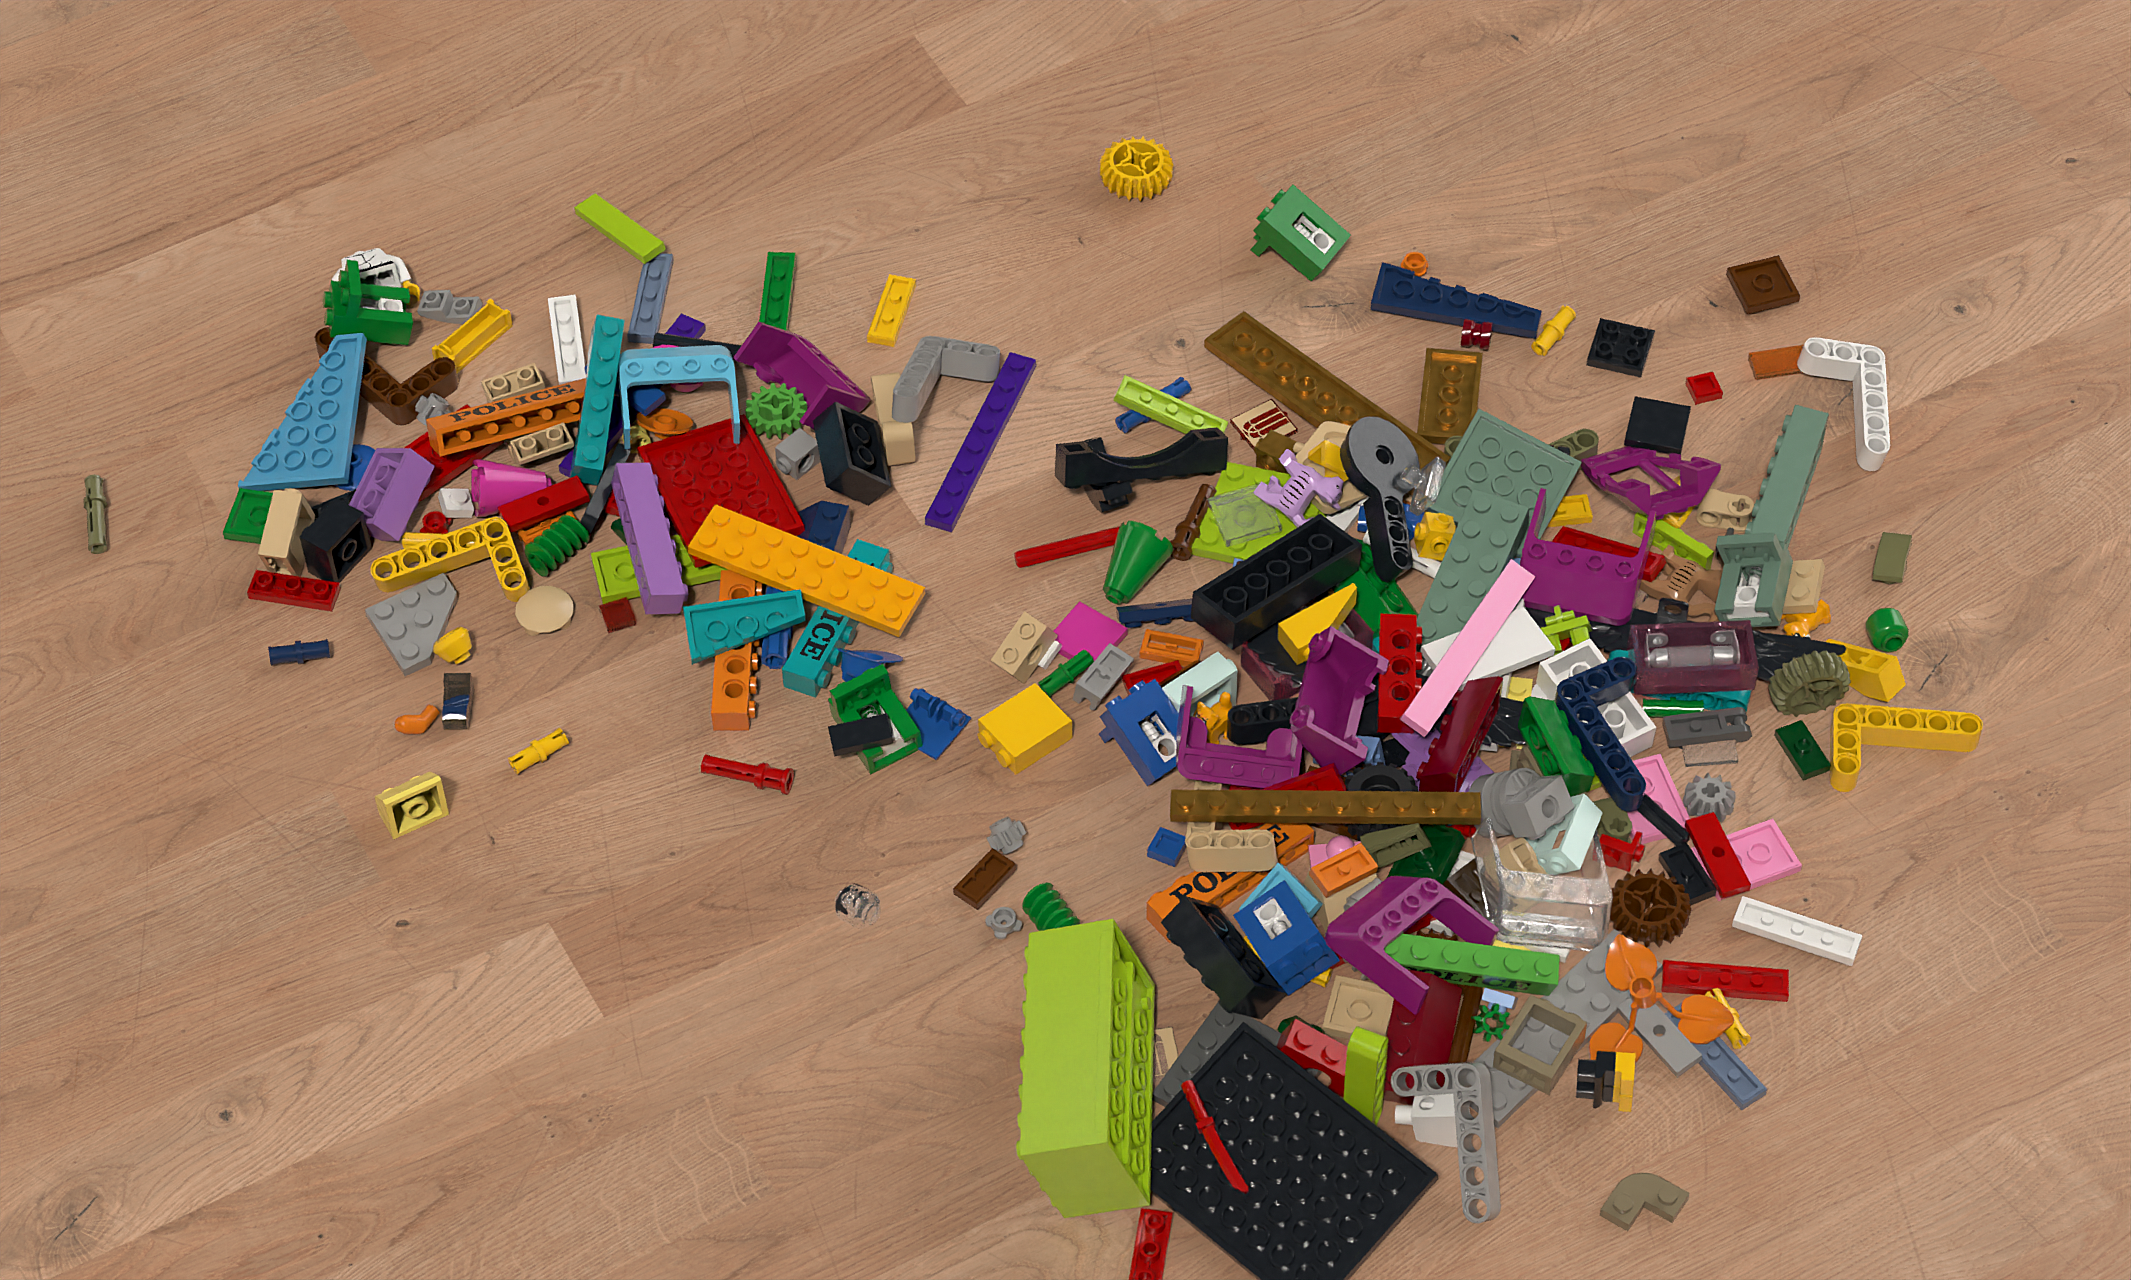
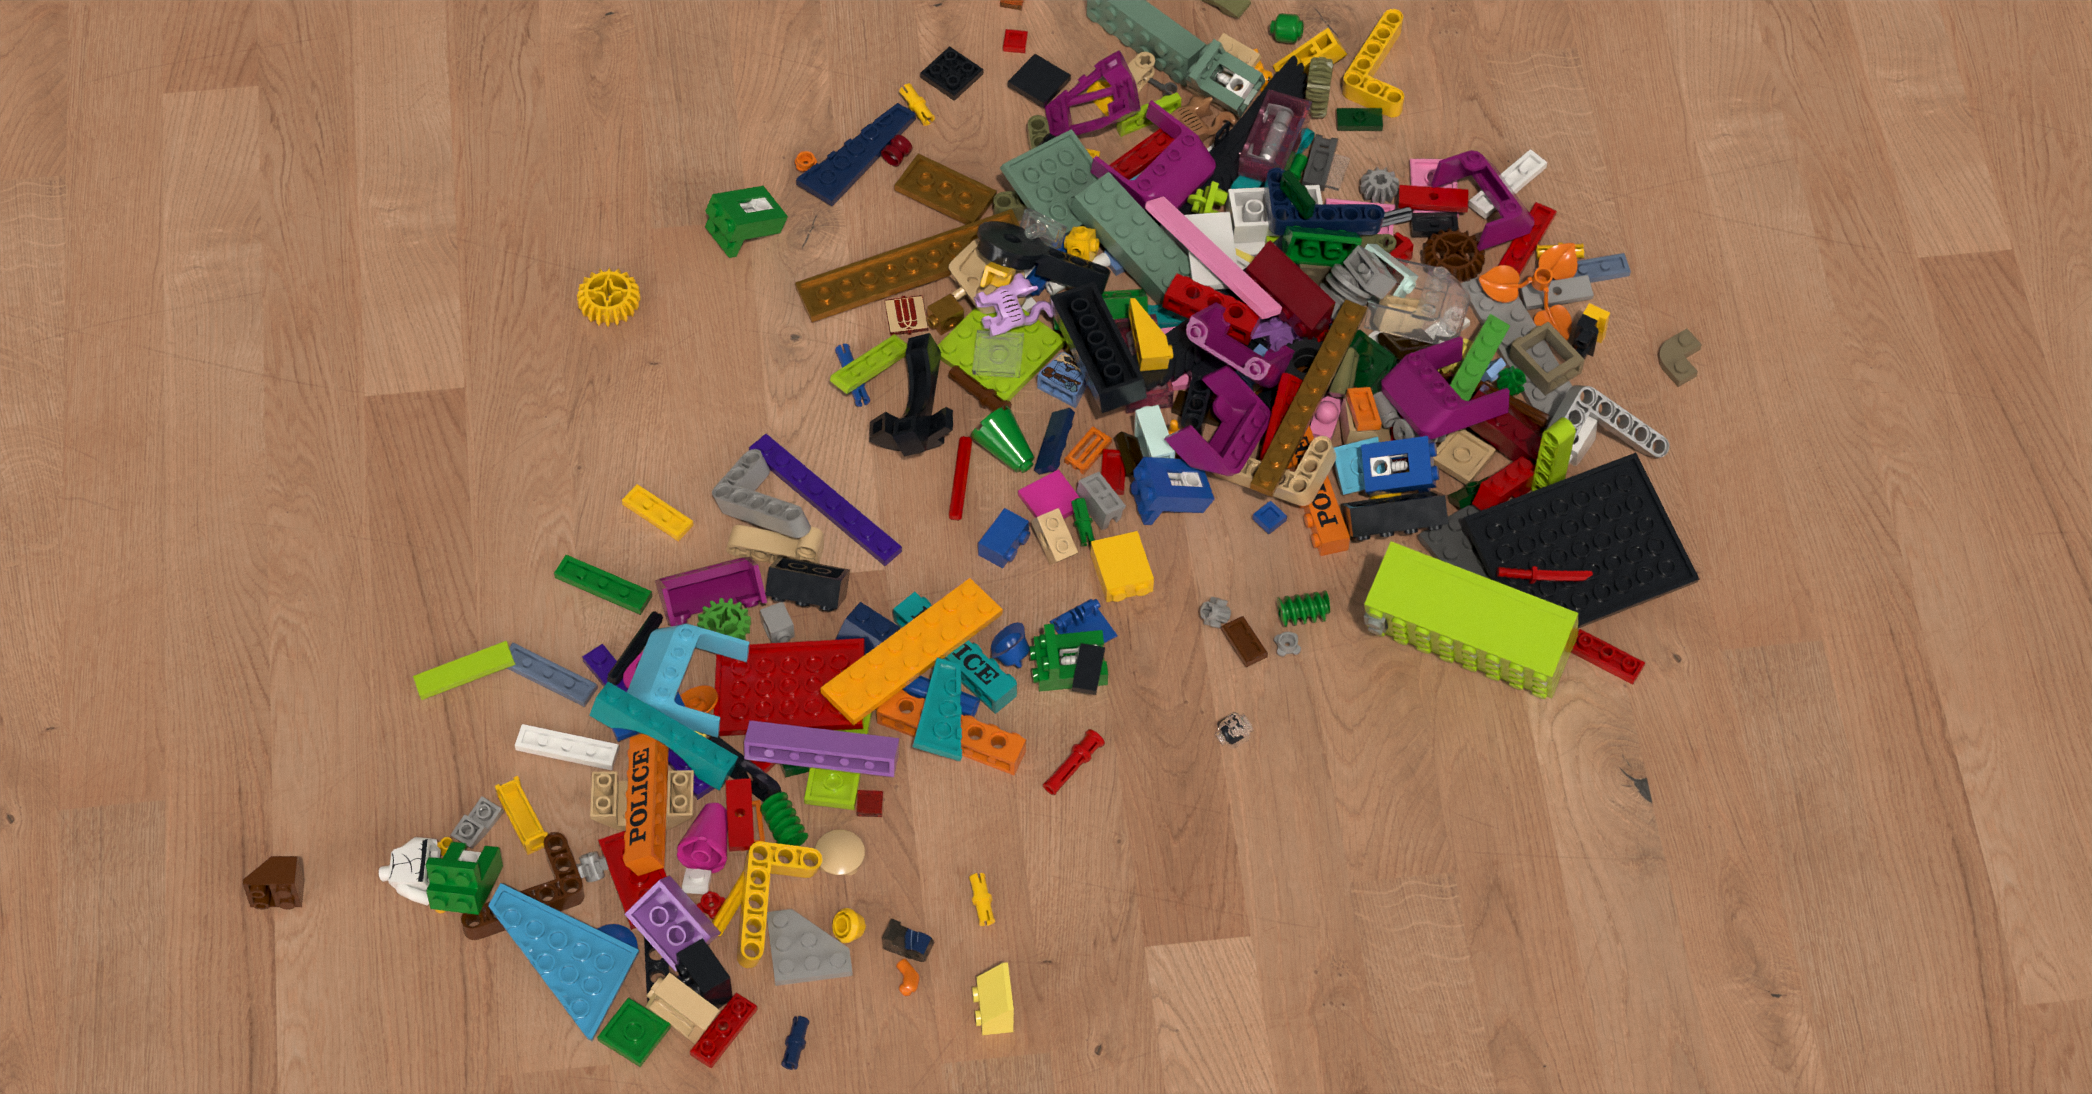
camera: 70 degrees left, 5 degrees up
(304, 177) = (276, 884): none -> reddish brown slope
(1002, 606) = (1004, 538): none -> blue brick
(1599, 690) = (1297, 194): none -> dark green plate
(1741, 938) = (1515, 219): none -> magenta windscreen

